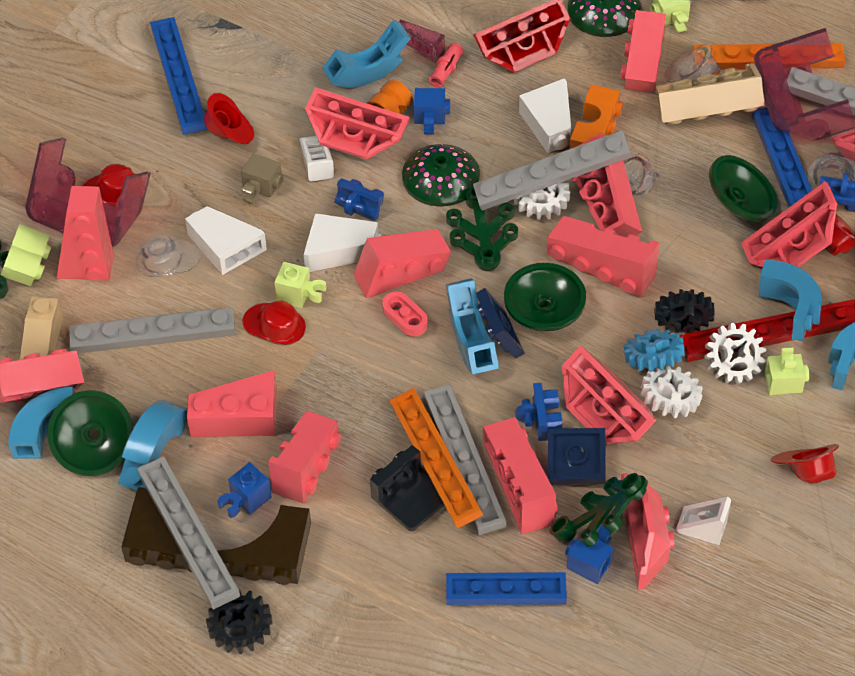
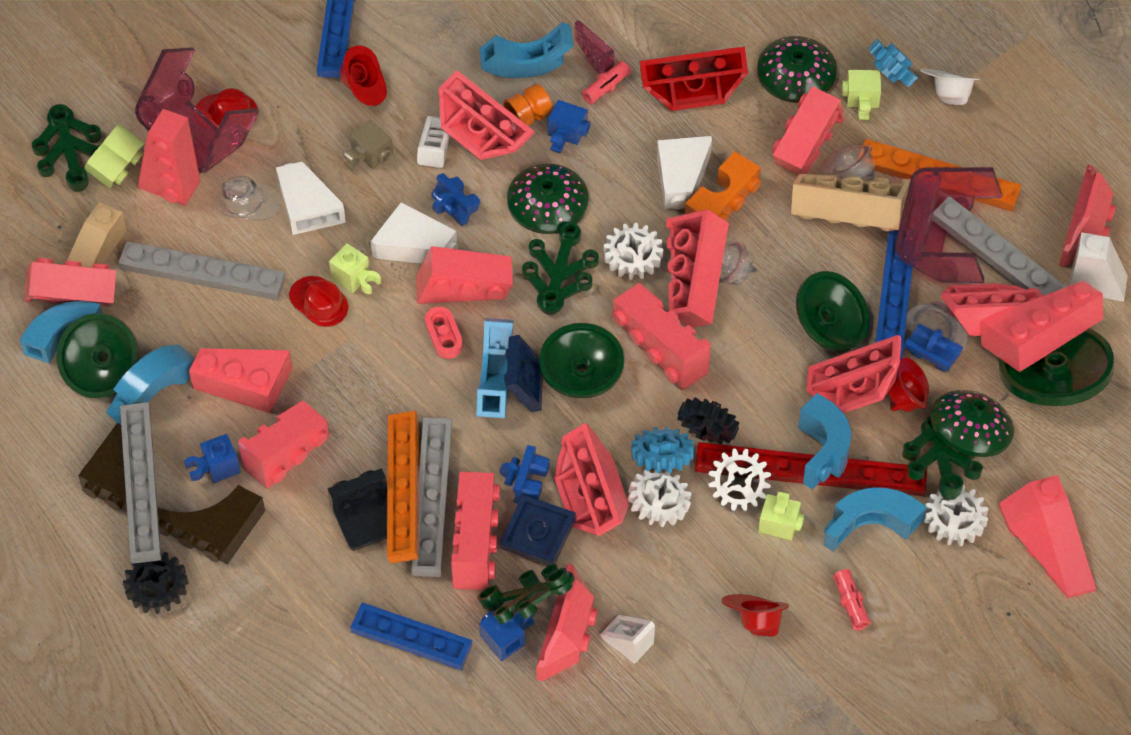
camera: 20 degrees right, 5 degrees up
(552, 170) = (646, 232): light grey plate -> none

